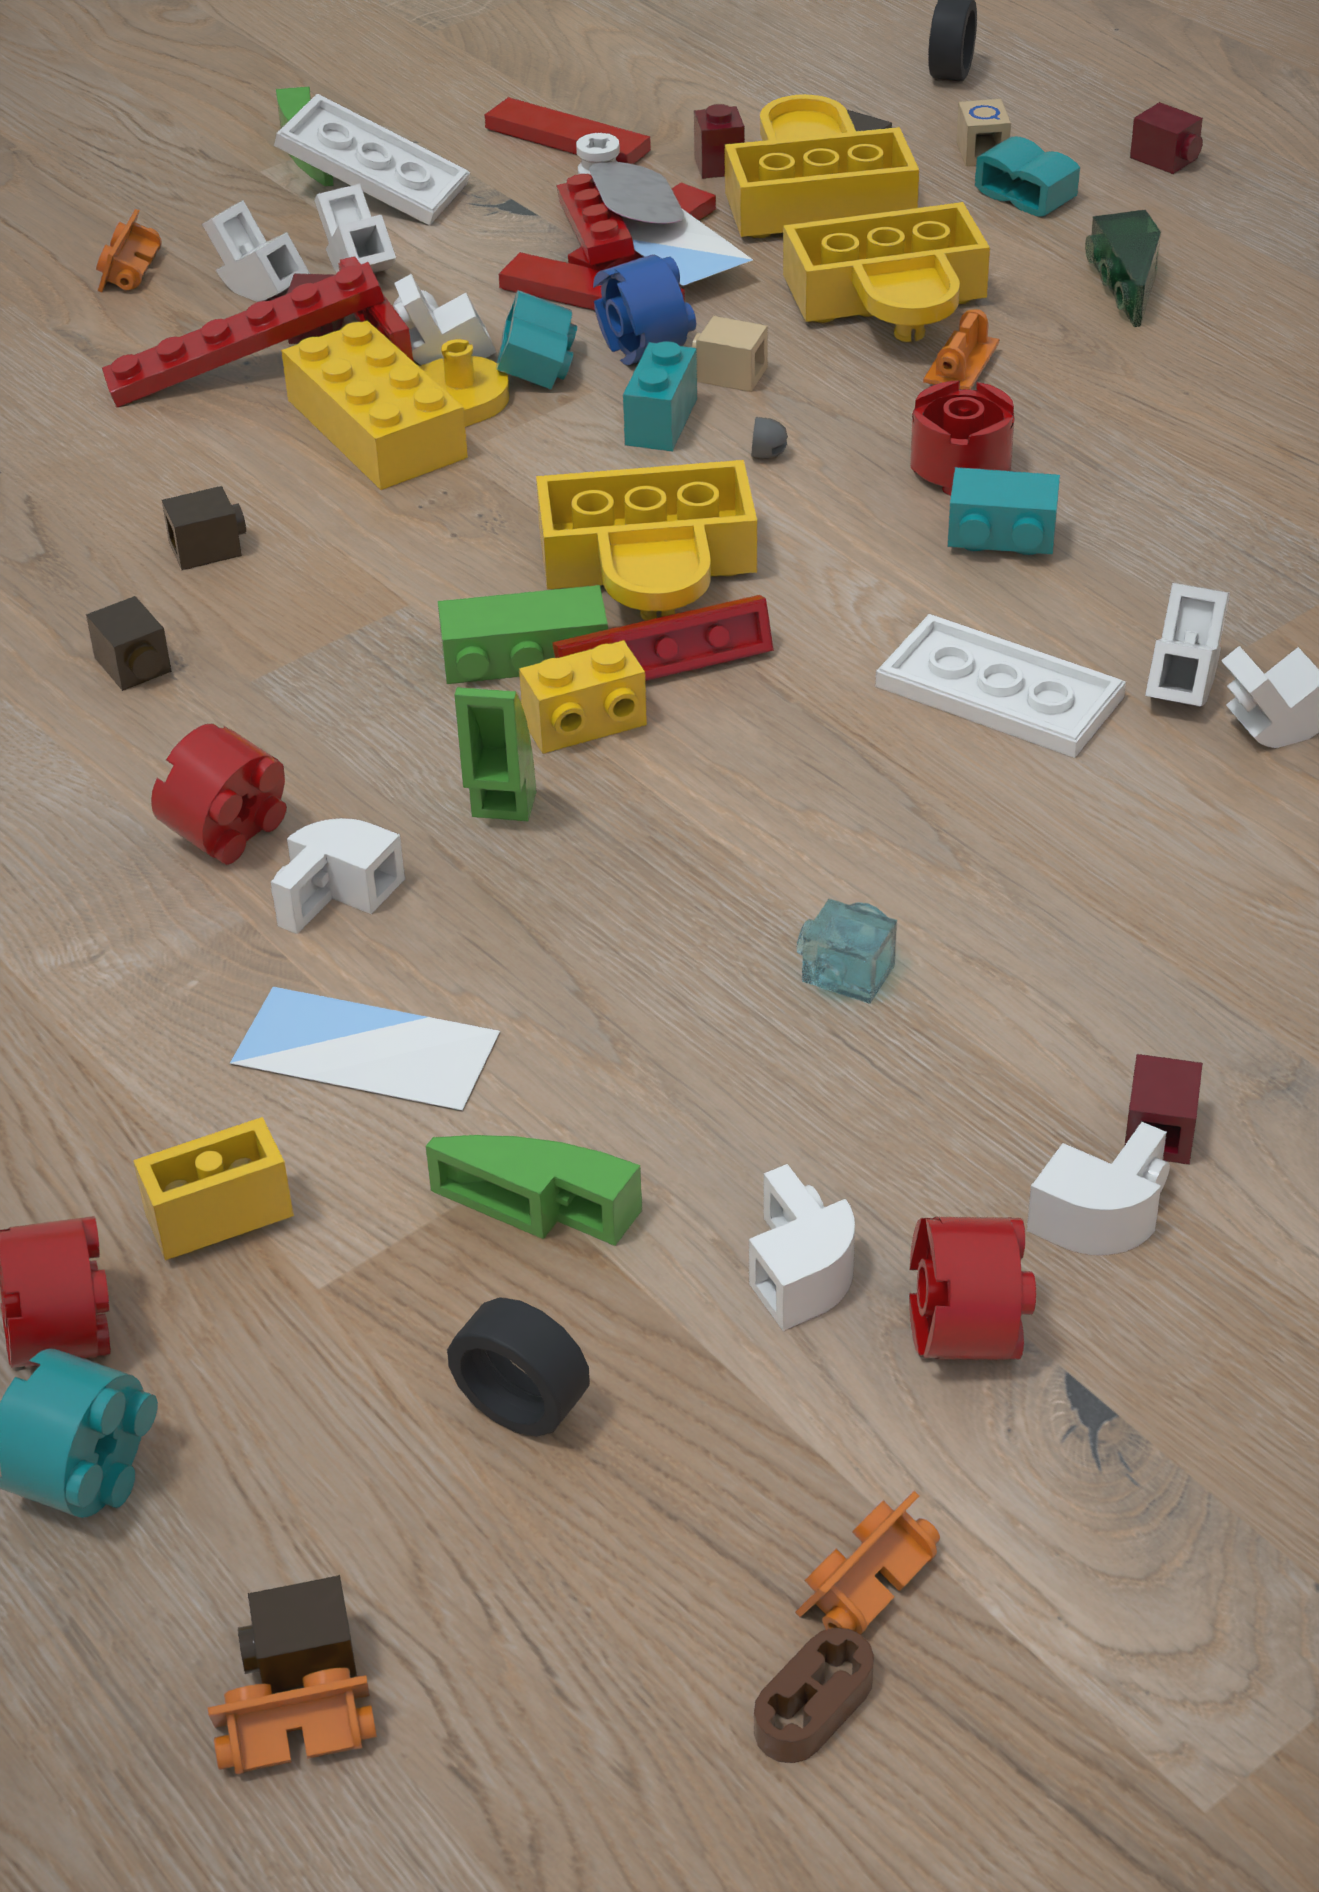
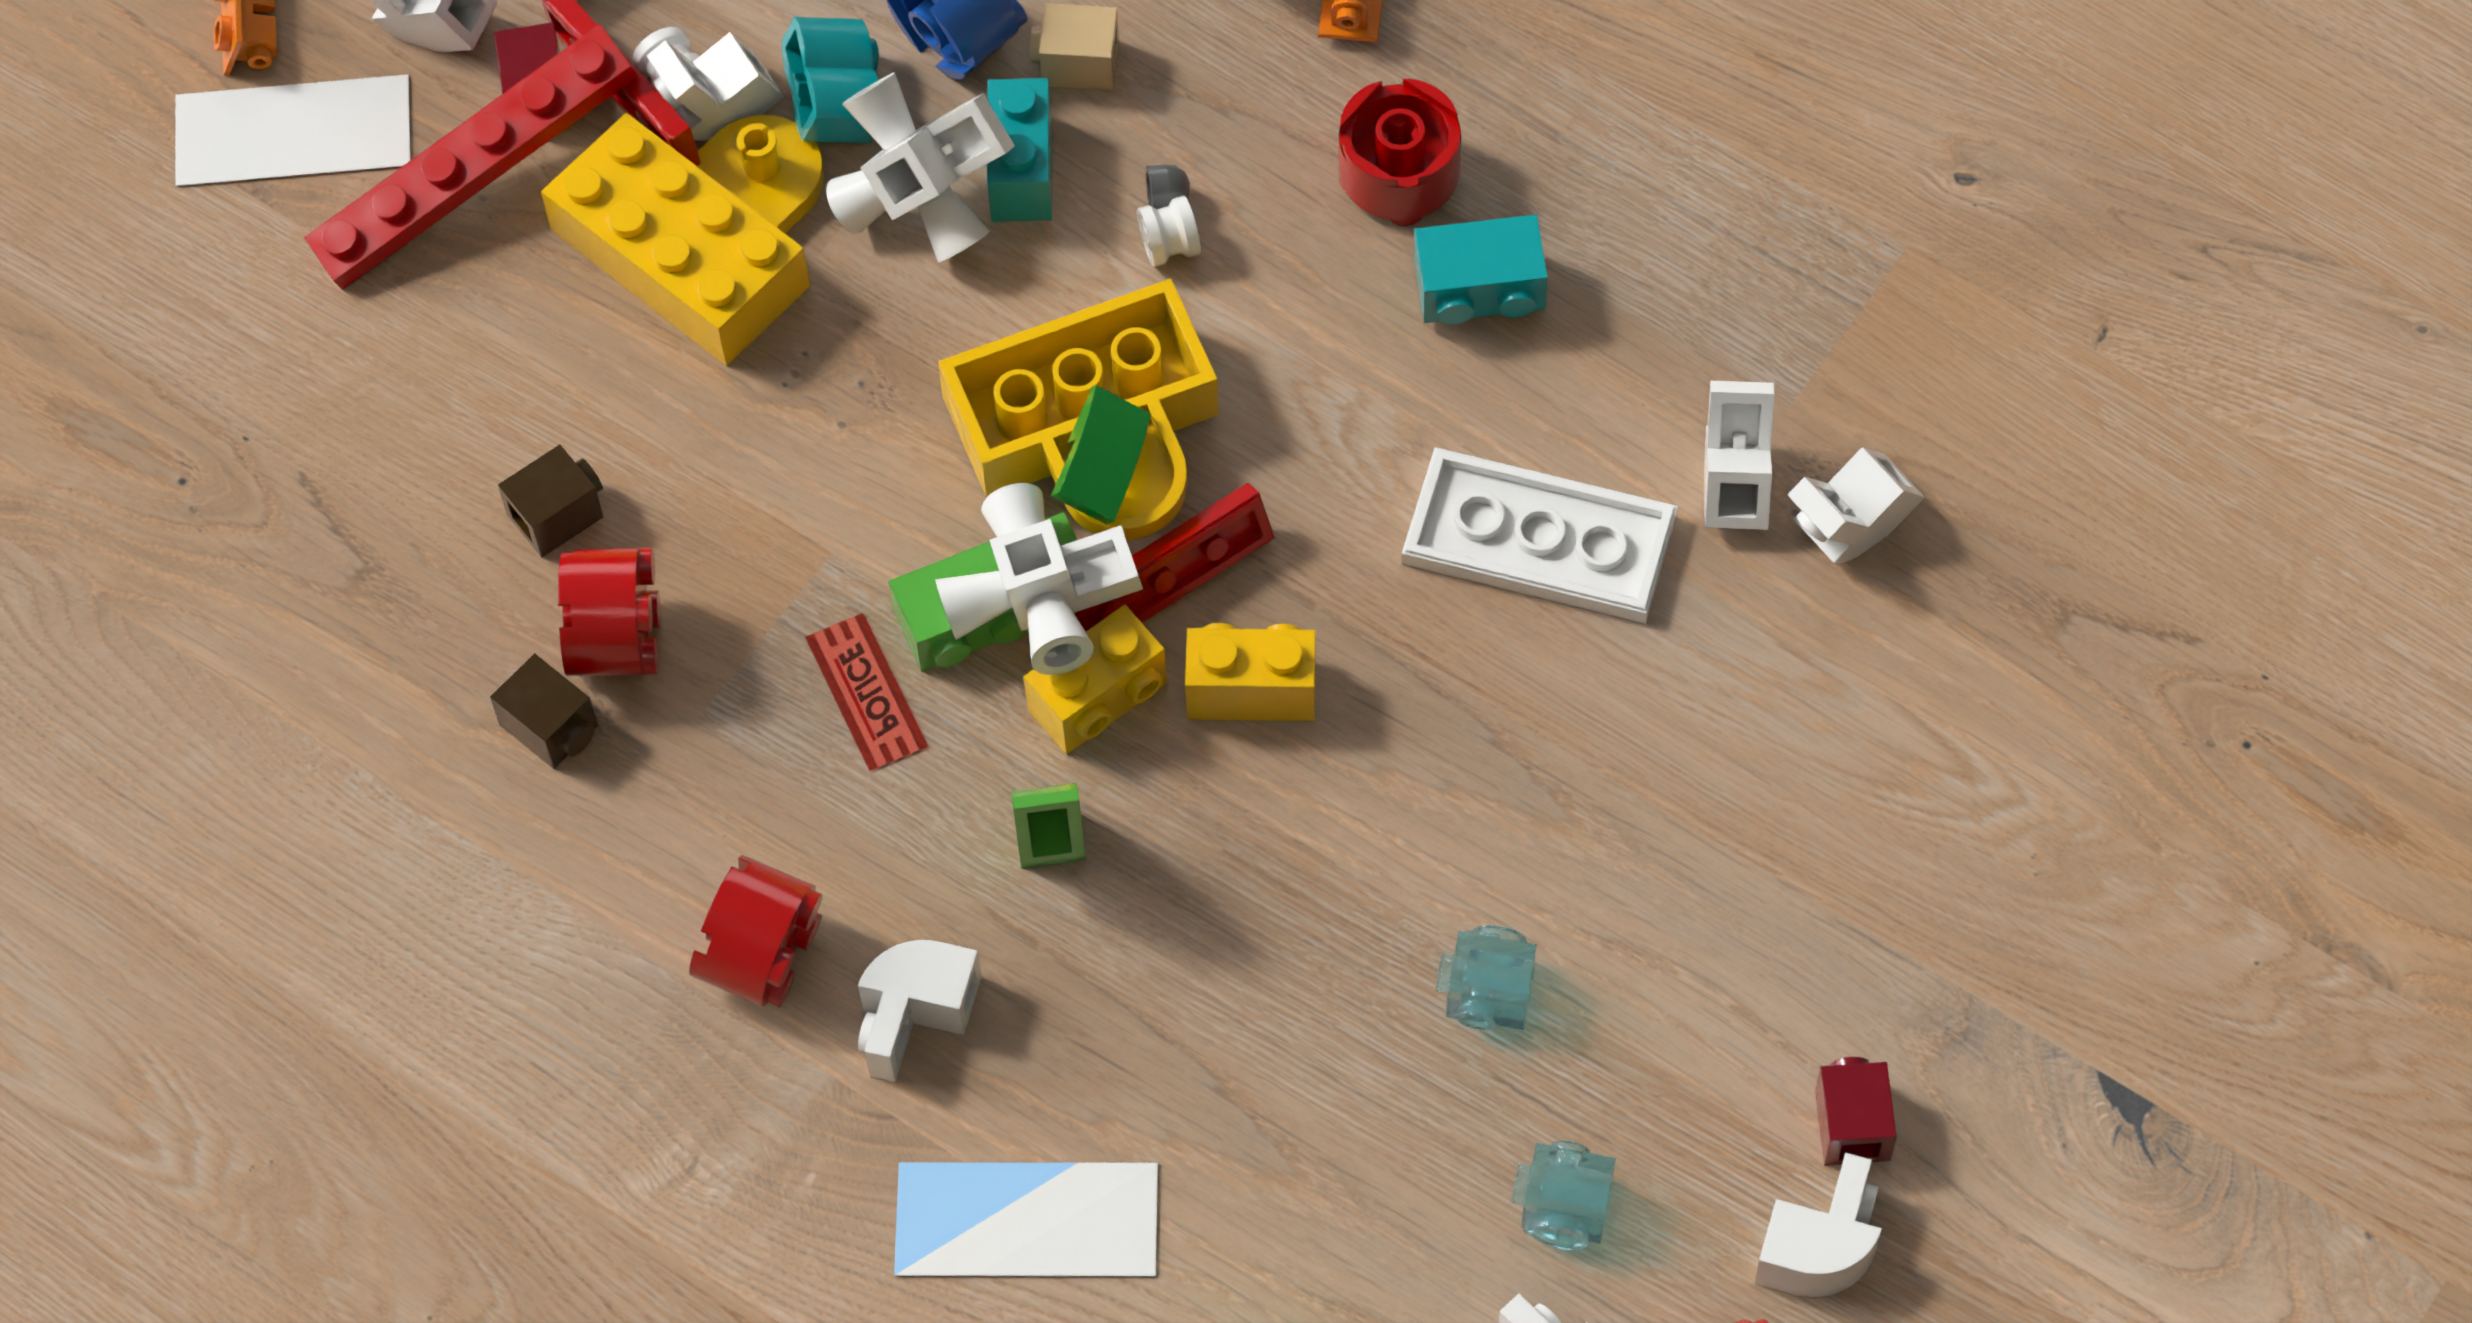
camera: 15 degrees left, 20 degrees up
(120, 321) = (292, 130): none -> white sticker
(205, 582) = (608, 612): none -> red brick
(396, 688) = (866, 691): none -> clear red sticker
(553, 603) = (1040, 579): none -> white brick
(573, 376) = (918, 166): none -> white brick
(639, 538) = (1102, 455): none -> green slope
(715, 715) = (1250, 673): none -> yellow brick
(761, 456) = (1168, 231): none -> white wheel
(863, 1114) = (1564, 1194): none -> clear light blue brick

